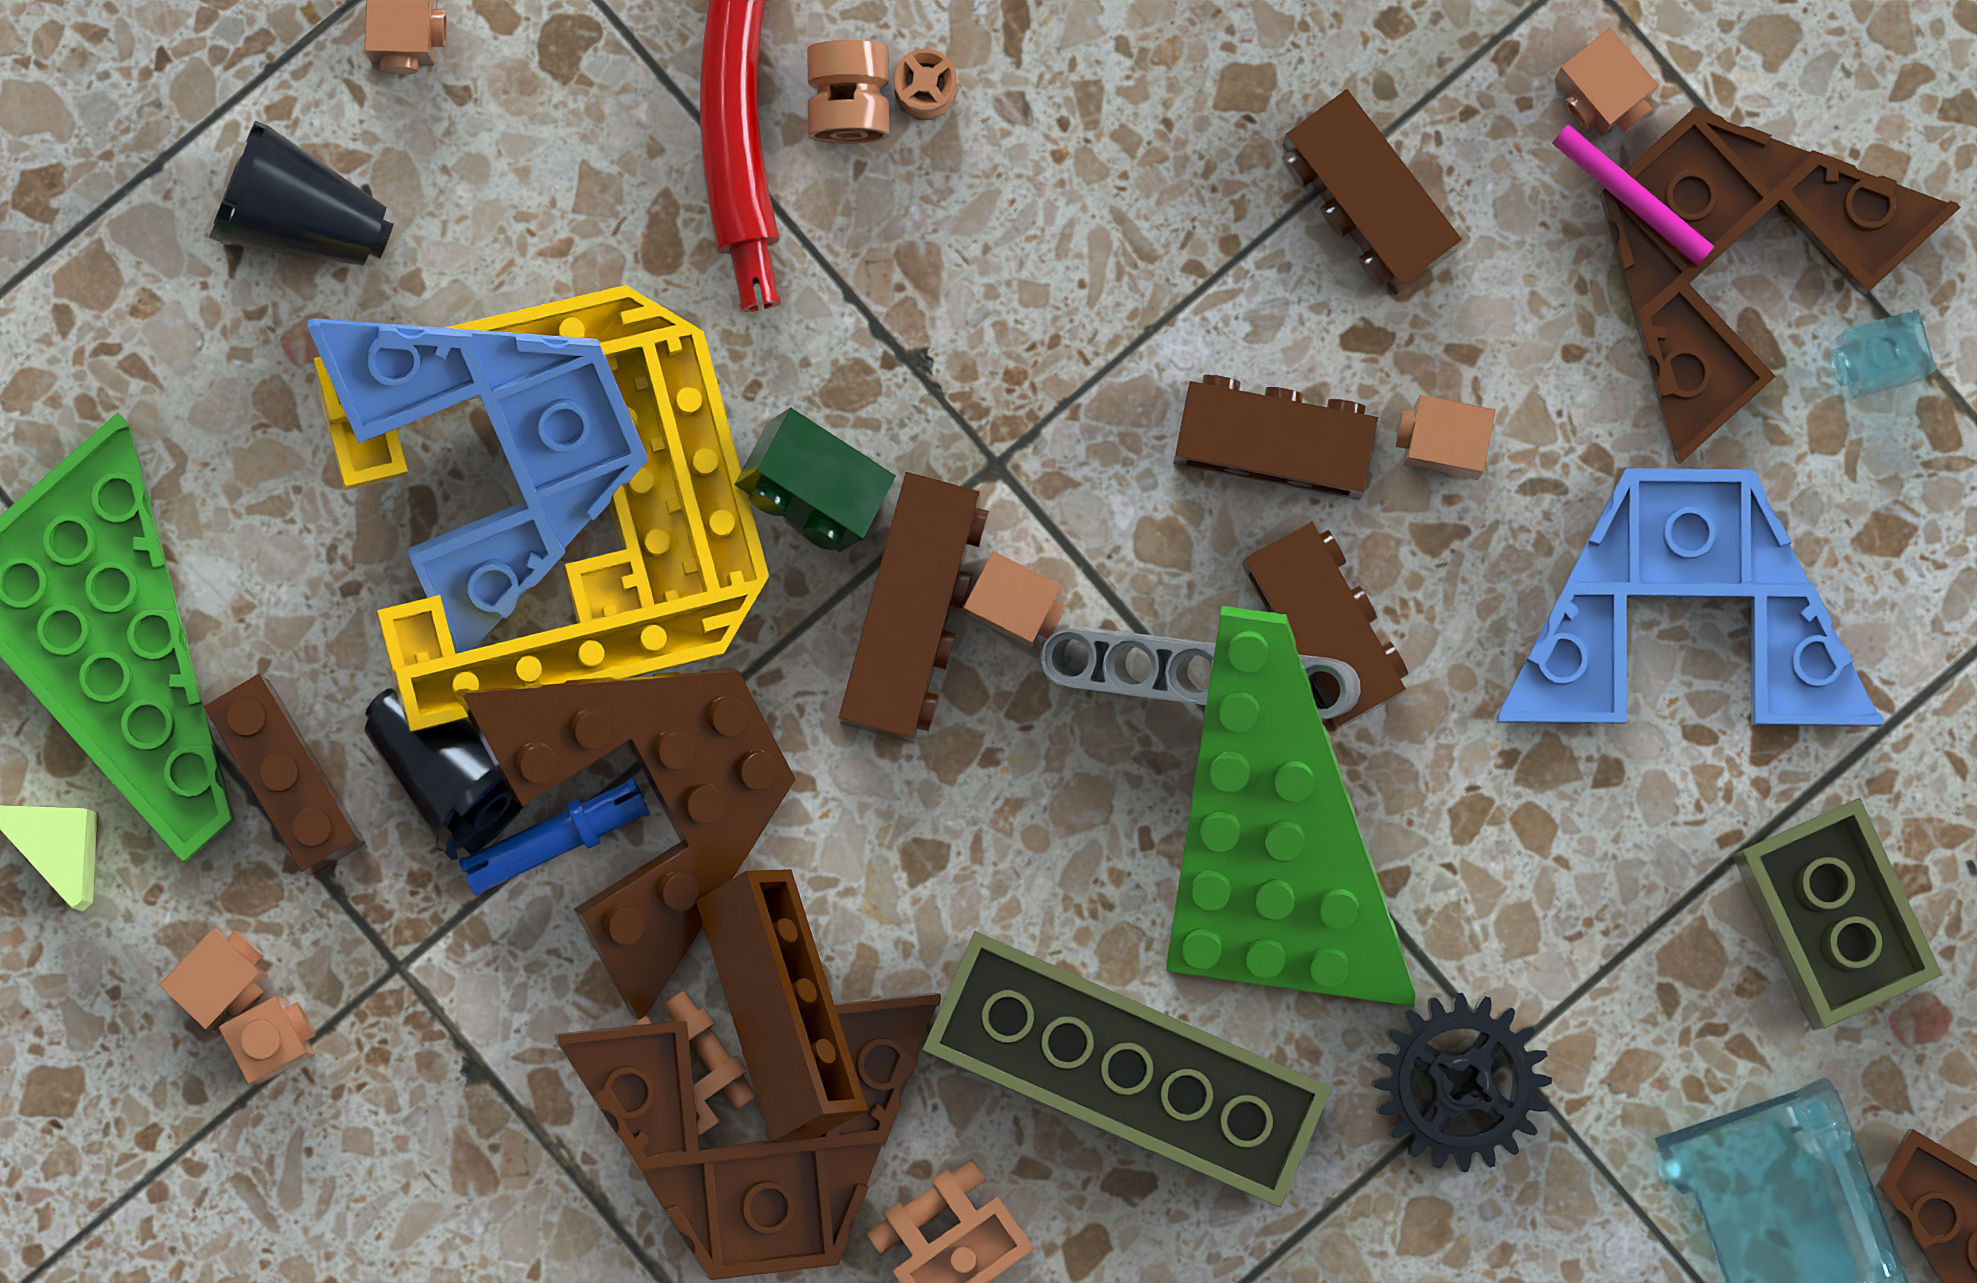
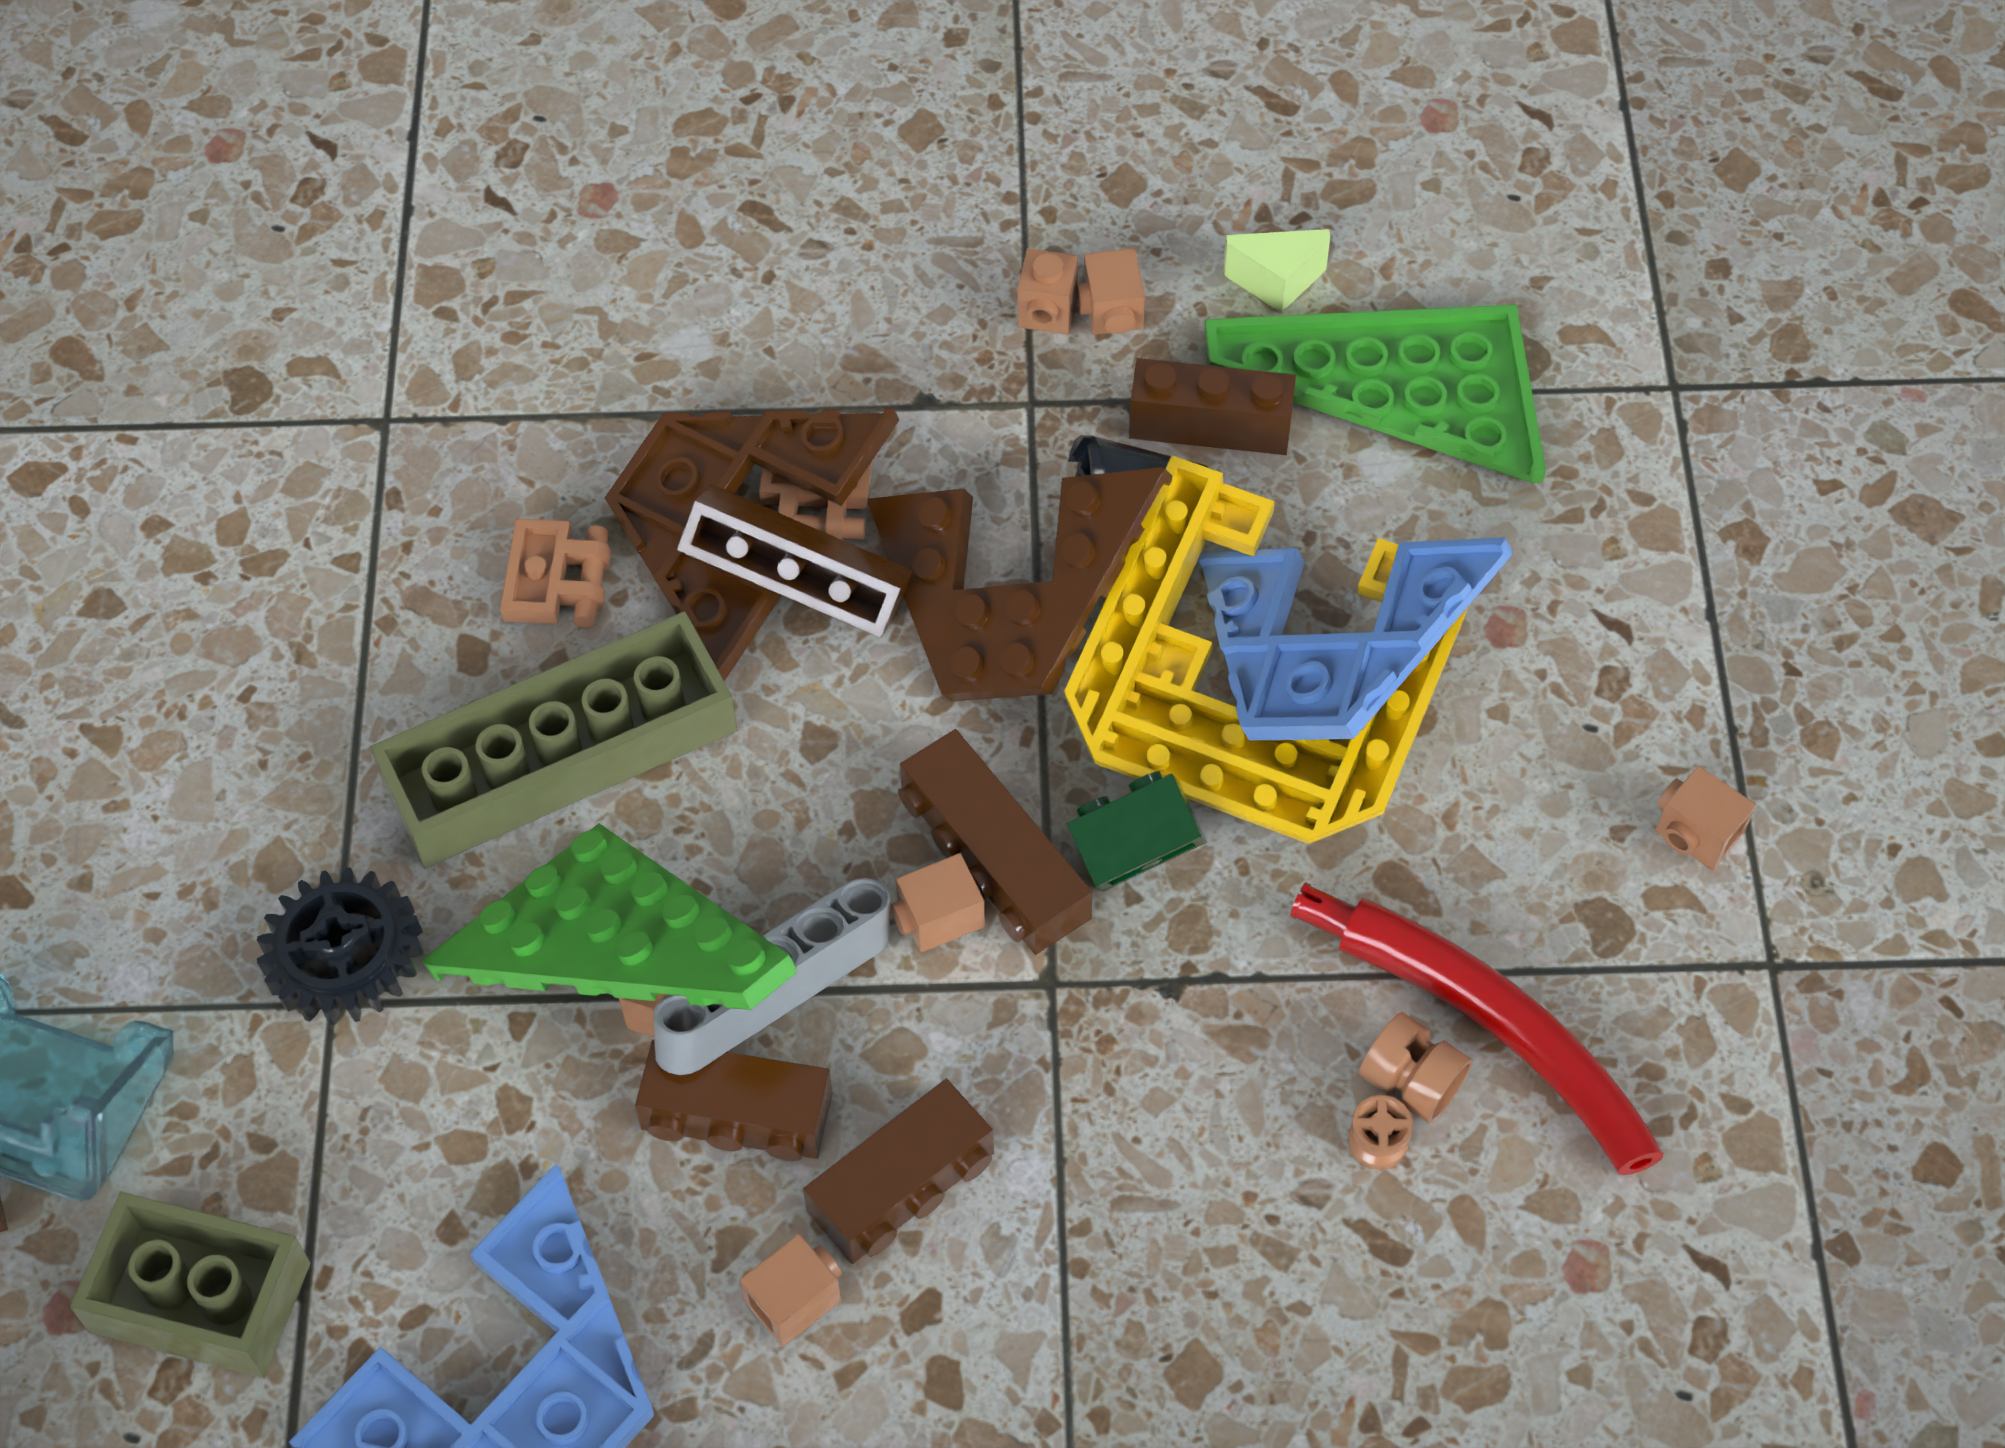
camera: 130 degrees right, 25 degrees down
(297, 205) = (1614, 656): black cone -> none
(555, 836) = (1028, 549): blue pin -> none
(1369, 193) = (1029, 1387): reddish brown brick -> none

